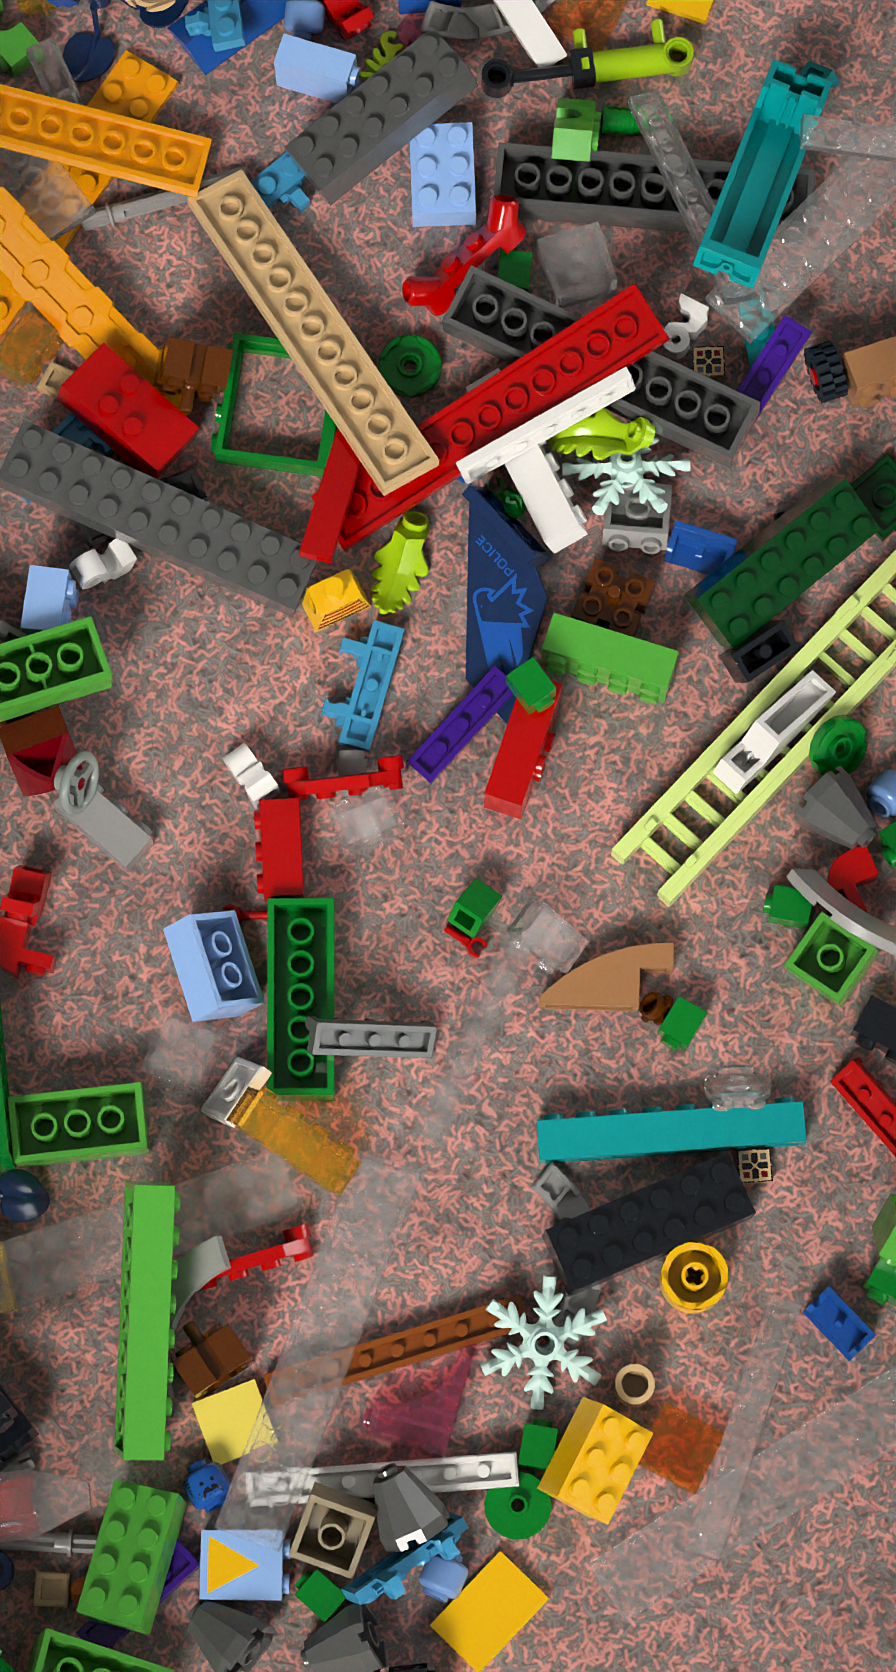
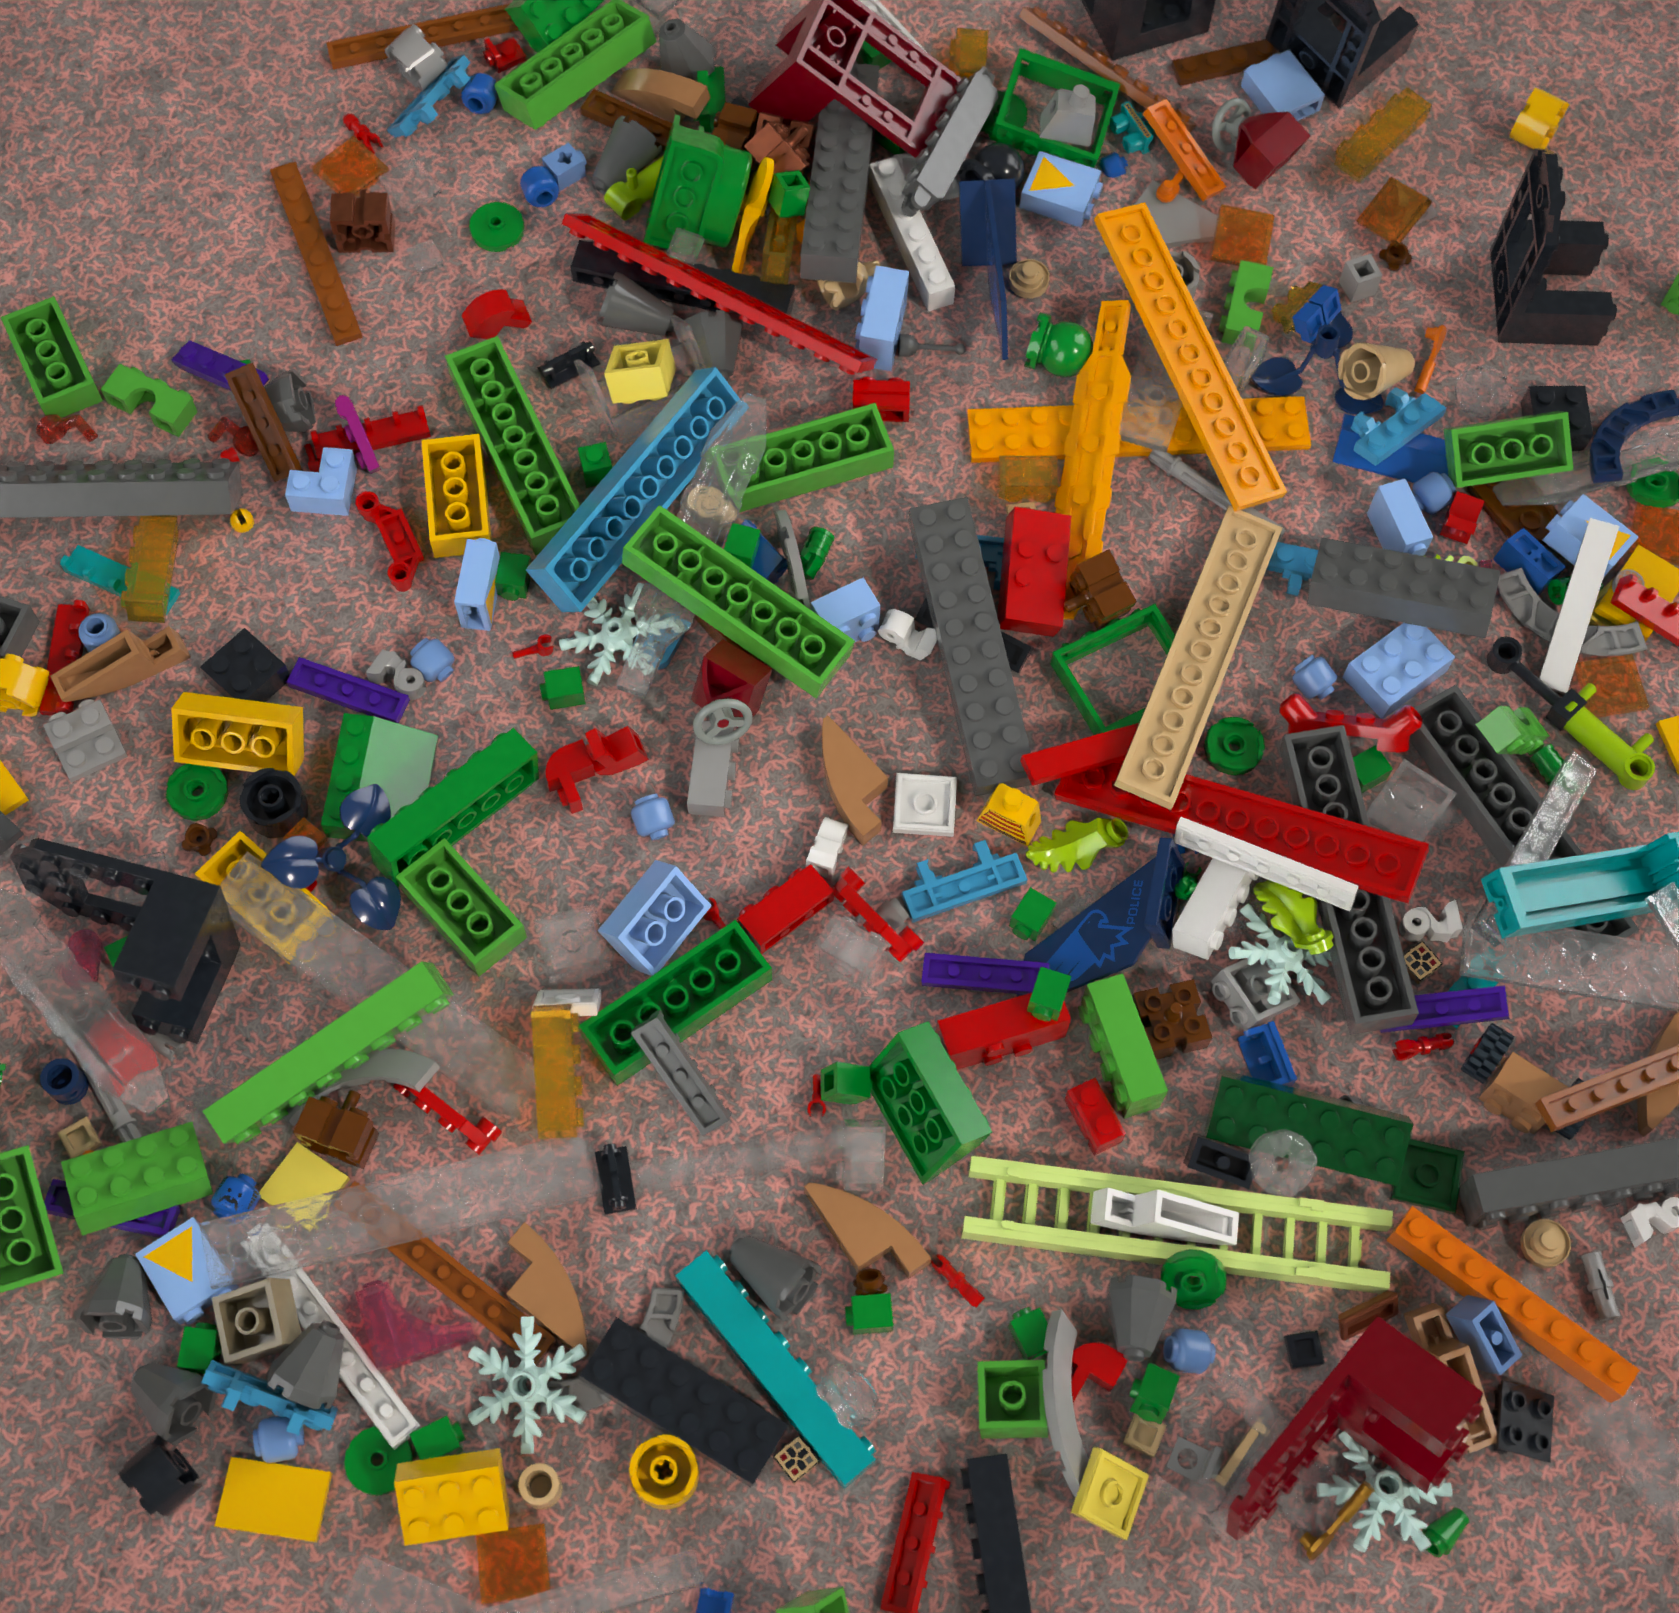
camera: 50 degrees right, 10 degrees down
(112, 904) = (652, 816): none -> medium blue head
(202, 711) = (851, 781): none -> medium nougat slope
(271, 665) = (924, 804): none -> white plate
(399, 251) = (1314, 677): none -> medium blue head
(418, 1155) = (615, 1179): none -> black hinge
(438, 648) = (1032, 915): none -> green brick
(475, 1273) = (547, 1290): none -> medium nougat slope
(543, 853) = (926, 1102): none -> green slope
(593, 1079) = (775, 1274): none -> dark grey cone
(648, 725) = (1094, 1116): none -> red brick
(703, 935) = (958, 1281): none -> red piece
(778, 416) = (1410, 1048): none -> red piece
(817, 605) = (1301, 1162): none -> clear plate

